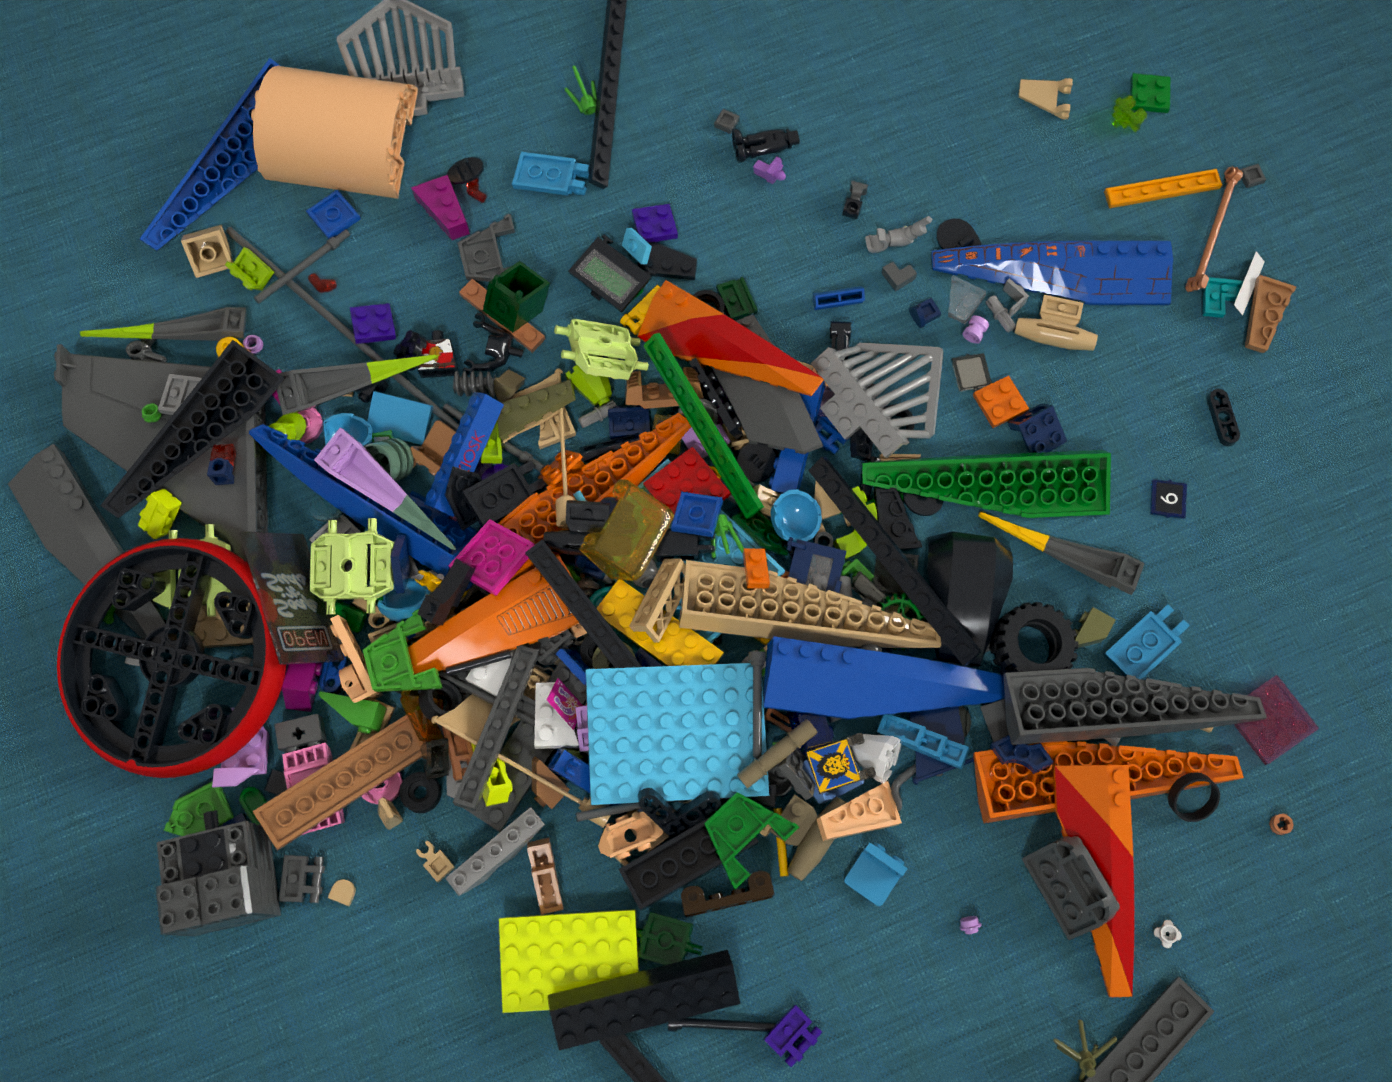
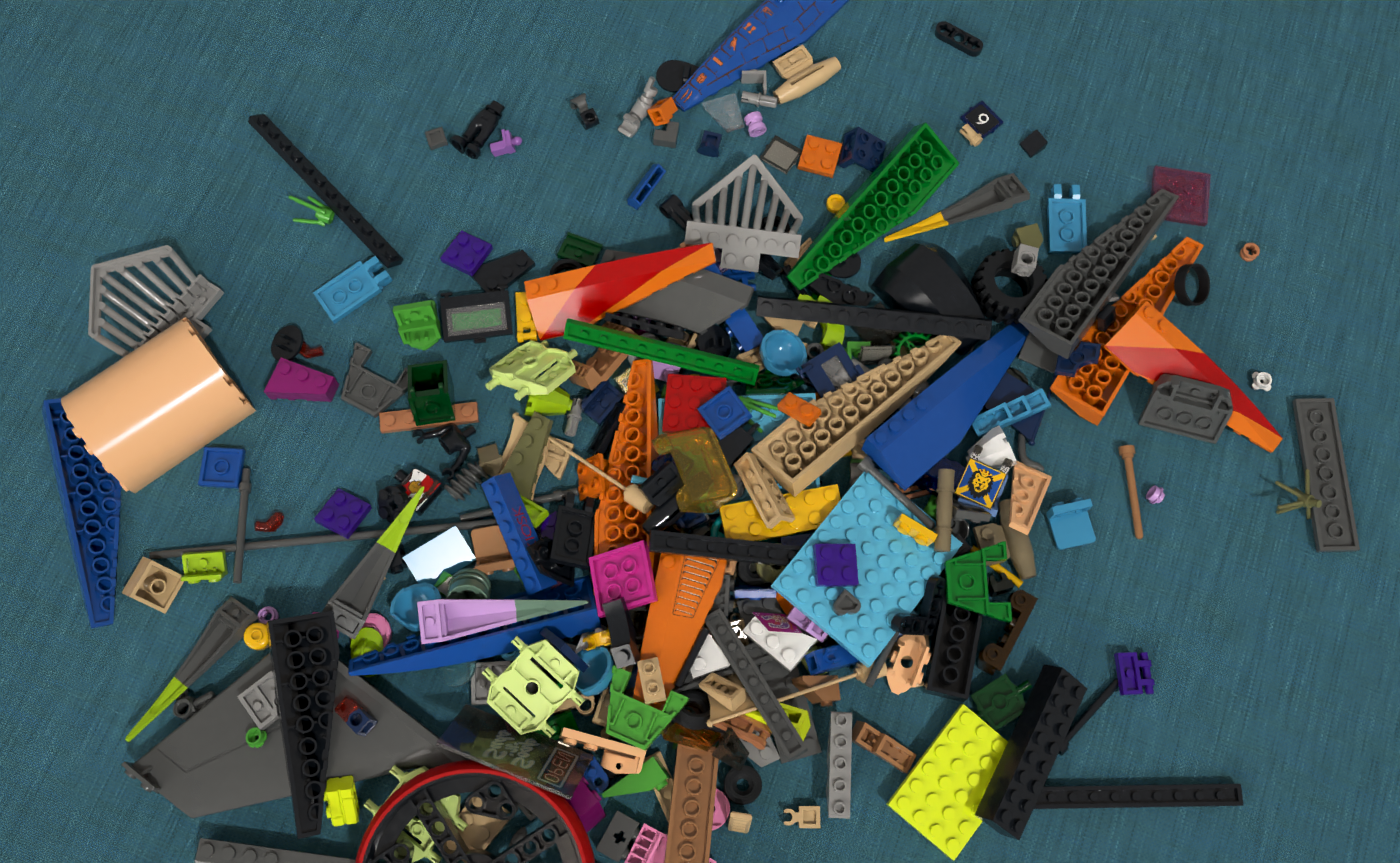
camera: 50 degrees left, 0 degrees up
(427, 648) = (651, 680): none -> tan plate
(468, 721) = (731, 700): none -> tan slope
(565, 240) = (418, 324): none -> bright green piece
(623, 741) = (846, 604): none -> dark grey tile
(636, 246) = (473, 279): medium azure plate -> none
(647, 705) = (835, 565): none -> dark purple plate
(734, 734) = (914, 529): none -> yellow plate
(764, 860) = (999, 588): none -> pearl dark grey tile
(913, 253) = (662, 111): none -> orange brick
(971, 447) = (835, 203): none -> yellow tile
(983, 870) = (1127, 453): none -> medium nougat piece
(1070, 630) = (1029, 255): none -> light grey brick
(1083, 747) = (1106, 318): none -> black plate
(1144, 501) = (974, 138): none -> tan pin
(1190, 558) = (1034, 143): none -> black slope

